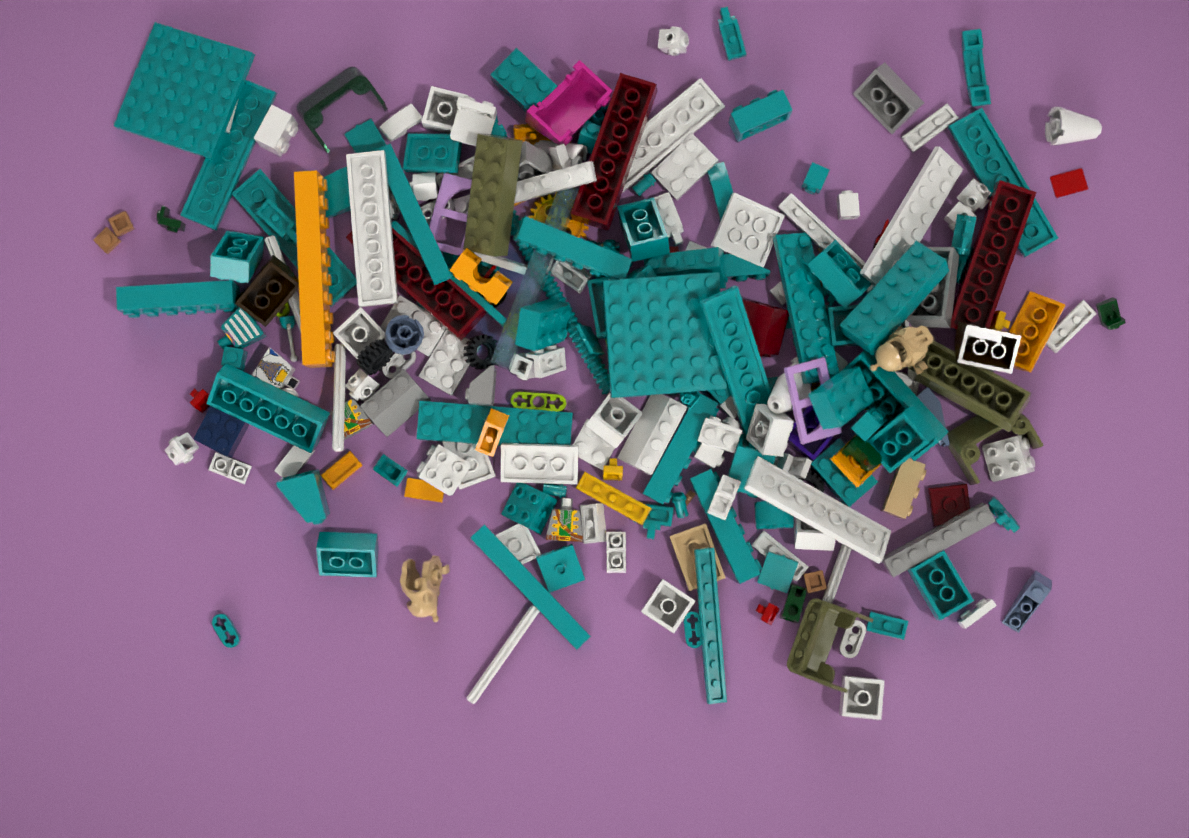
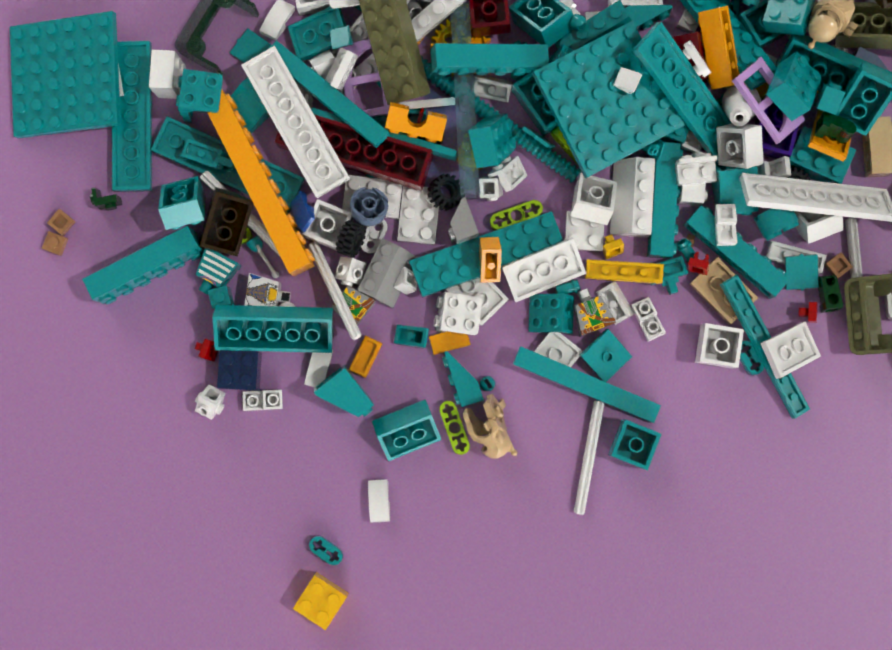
camera: 30 degrees left, 0 degrees up
(200, 673) = (320, 601): none -> yellow brick
(293, 607) = (379, 500): none -> white slope
(295, 164) = (198, 93): none -> teal bracket
(341, 313) = (302, 211): none -> blue slope
(388, 556) = (463, 439): none -> lime beam
(408, 418) = (406, 282): none -> white slope
(420, 538) = (465, 384): none -> teal slope
(436, 197) = (341, 68): none -> white bracket
(446, 545) = (483, 385): none -> teal hinge
(448, 168) = (341, 37): none -> teal slope
(548, 661) = (634, 444): none -> teal brick
(671, 250) = (578, 22): none -> teal hinge
(683, 524) = (699, 266): none -> red tile
(686, 325) = (627, 80): none -> white slope
(731, 639) = (790, 350): none -> white plate
(762, 339) = (691, 52): none -> white plate
(790, 330) = (719, 46): none -> light orange brick

